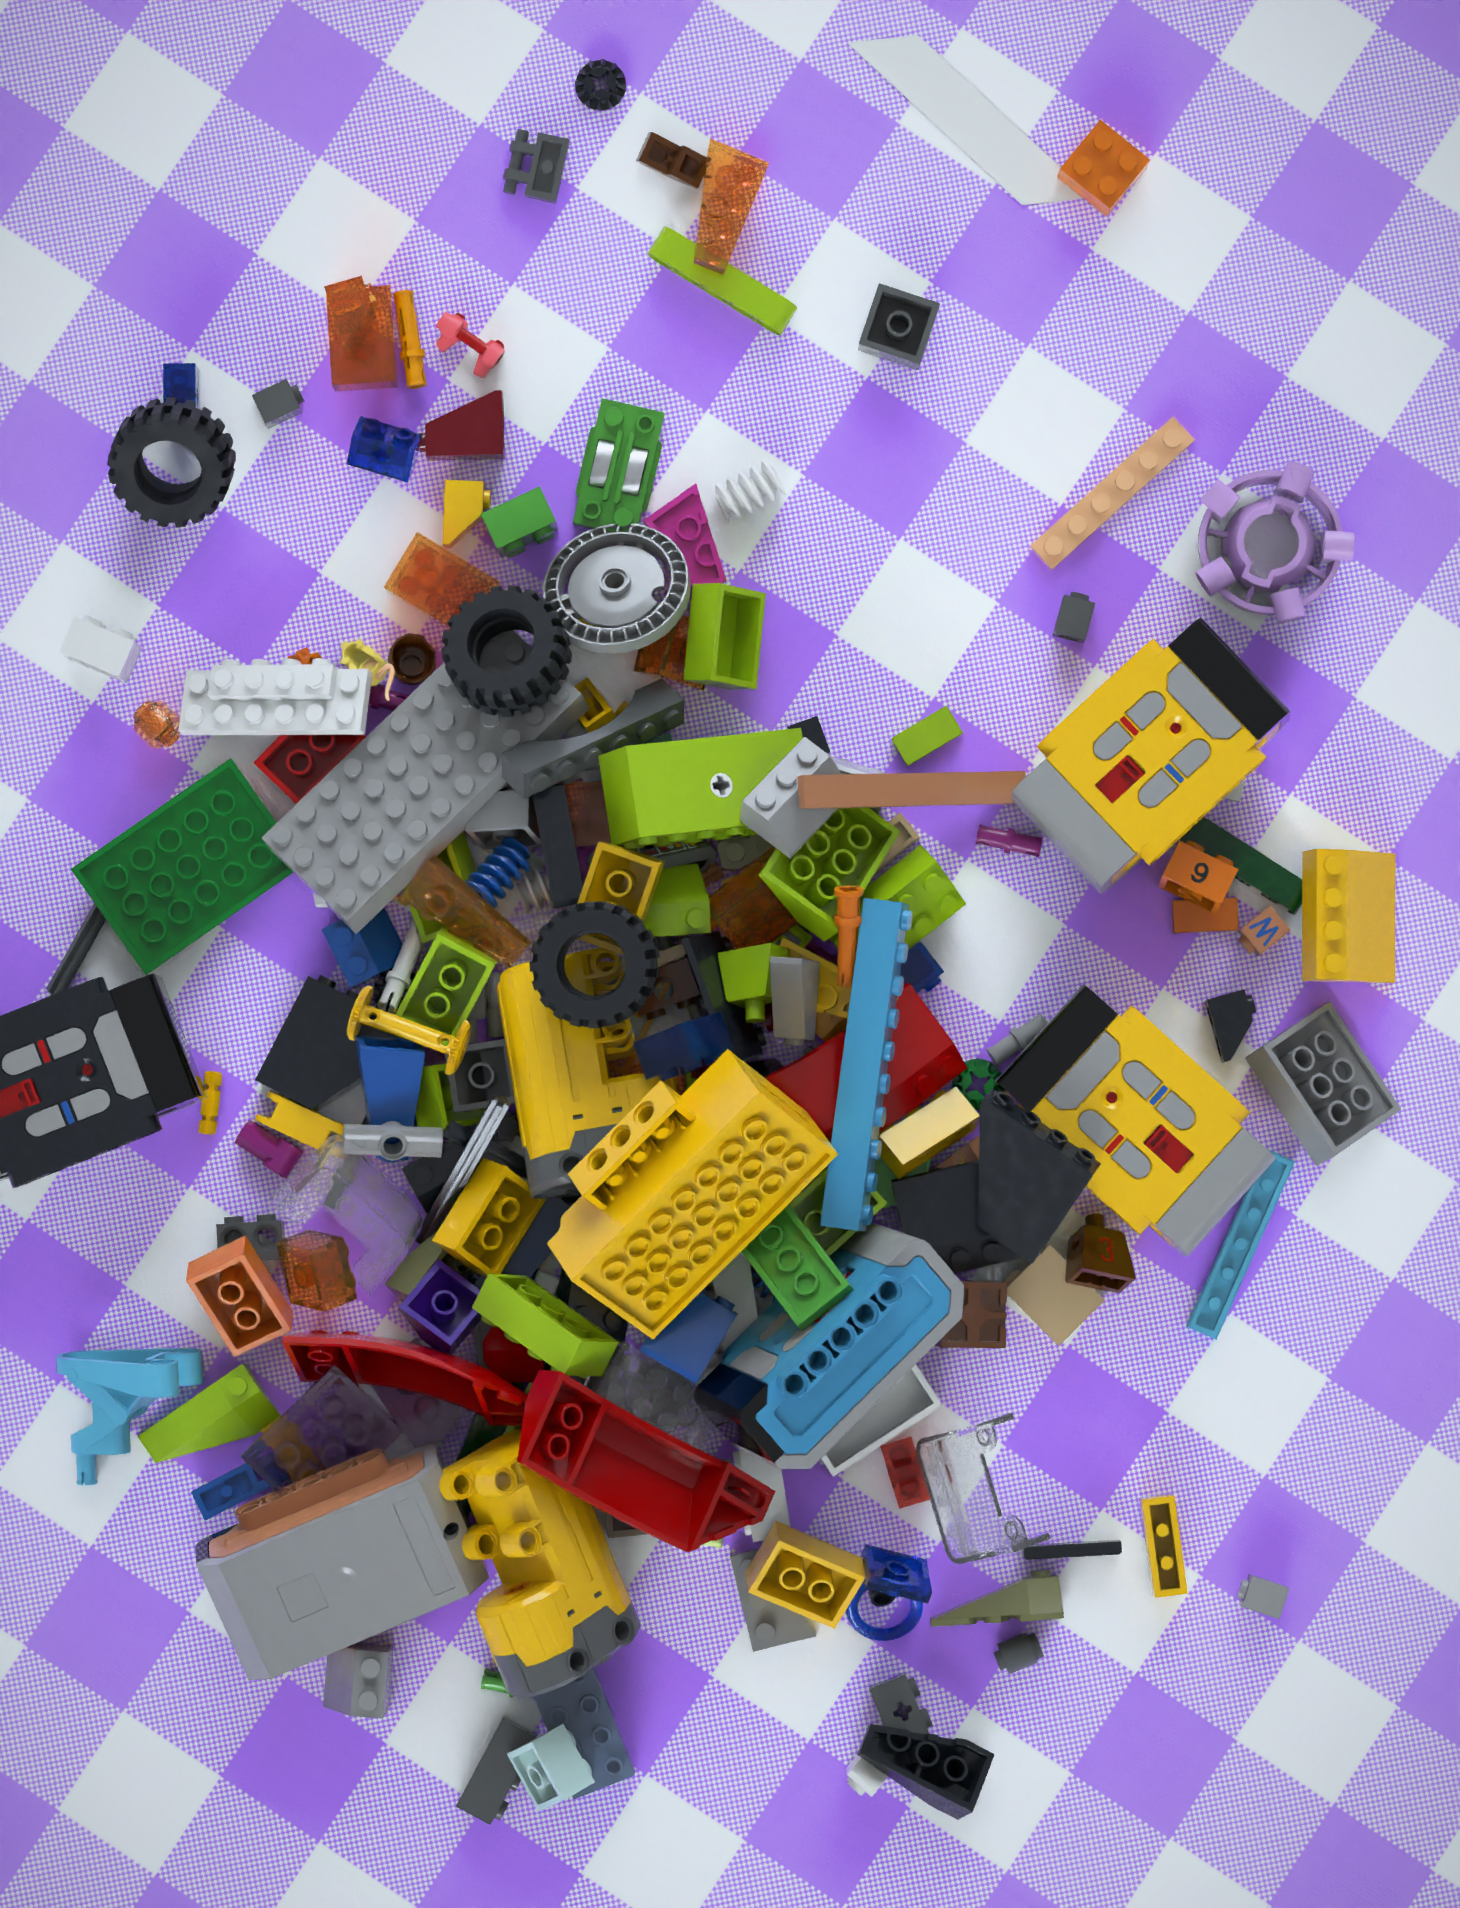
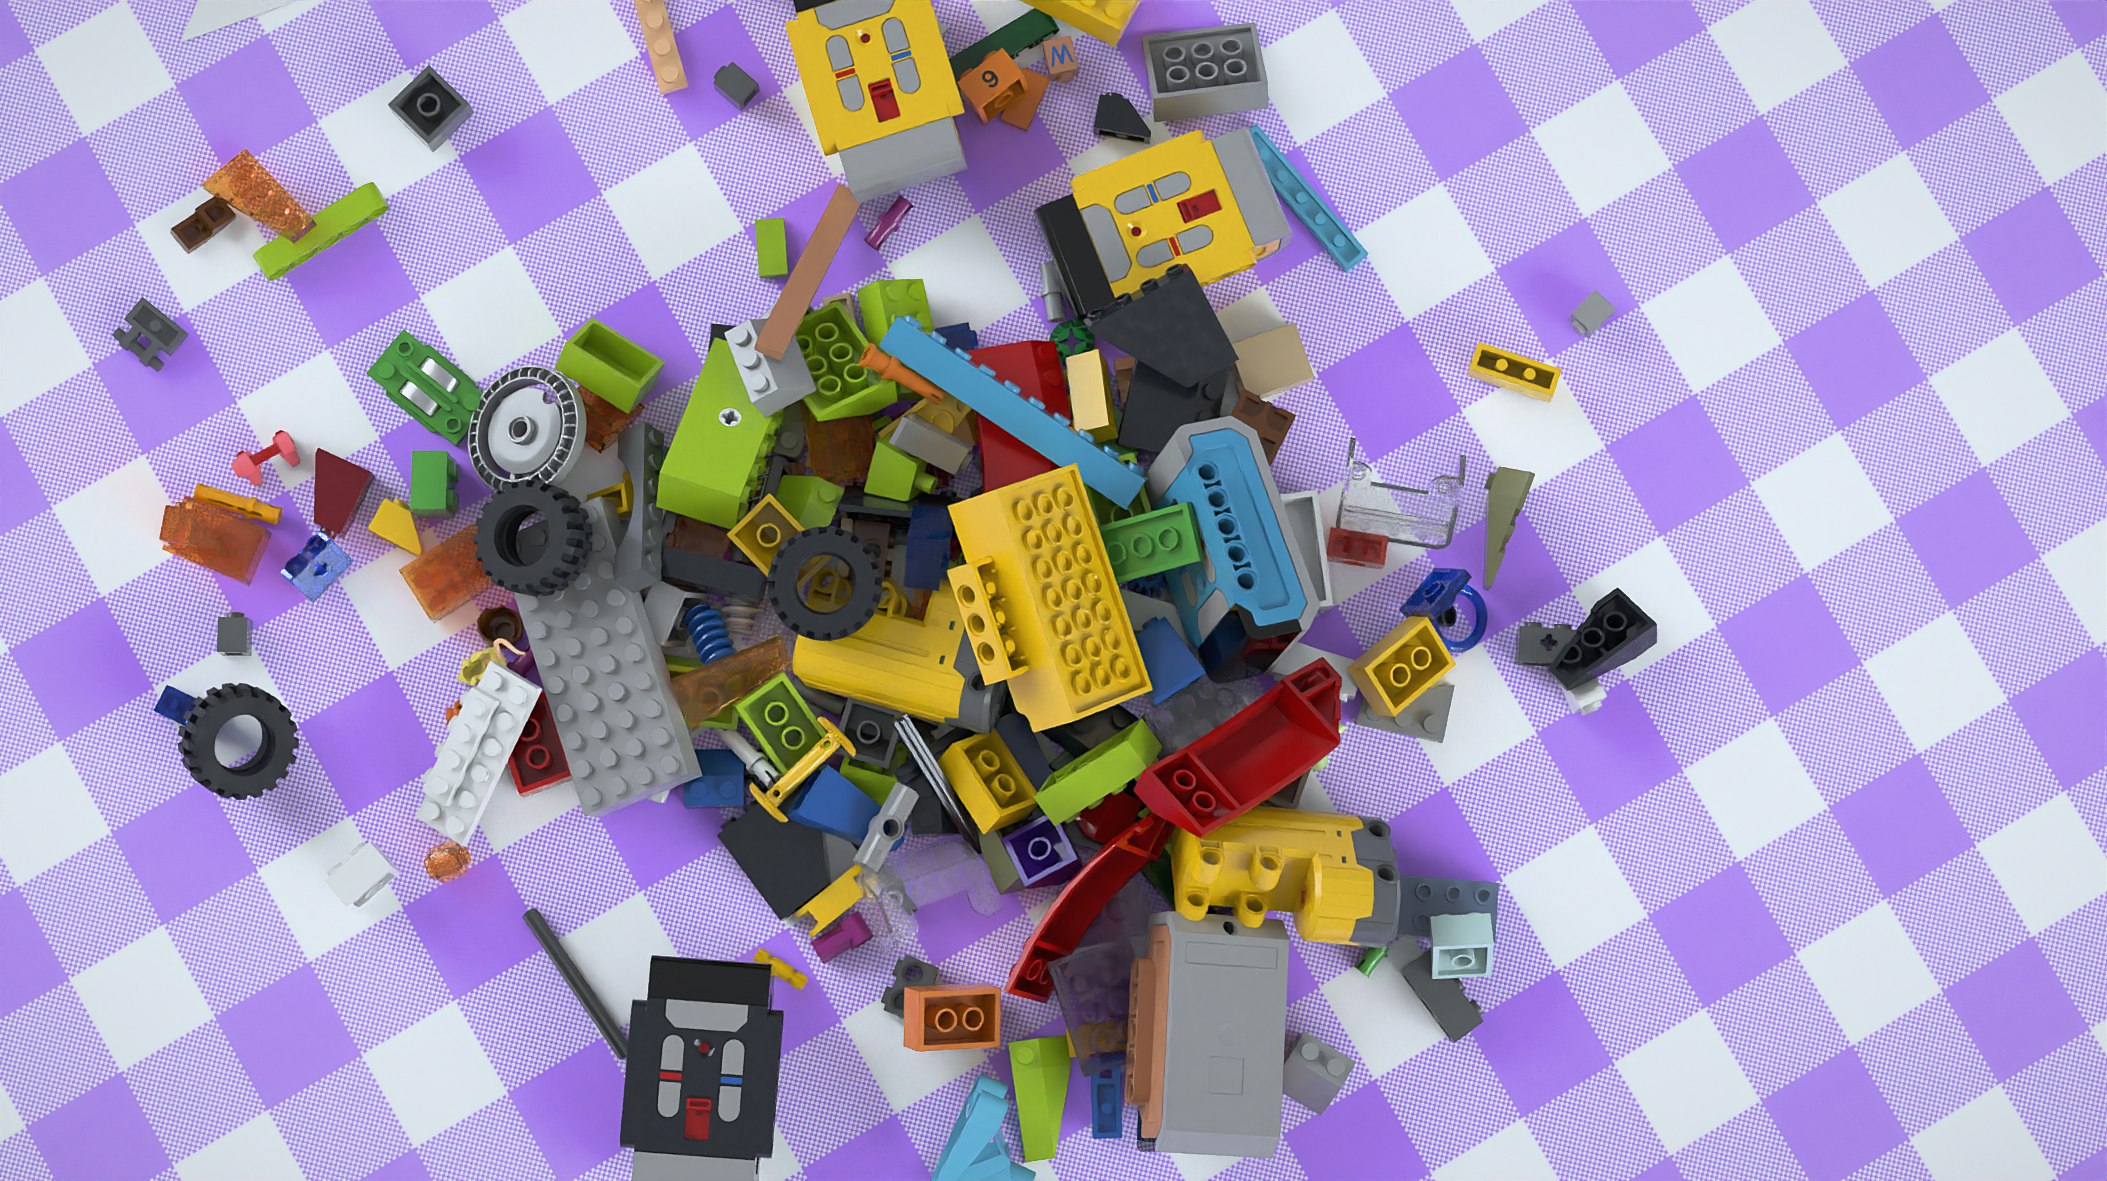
camera: 70 degrees left, 5 degrees down
(184, 867) = (576, 895): green plate -> none
(317, 1270) = (961, 943): clear orange brick -> none
(603, 98) = (124, 254): black gear -> none
(688, 528) = (504, 353): dark pink wing -> none
(748, 490) = (500, 291): white piece -> none
(1018, 1652) = (1545, 529): dark grey brick -> none
(1072, 1549) = (1482, 446): black tile -> none
(1099, 1257) = (1258, 310): reddish brown torso -> none

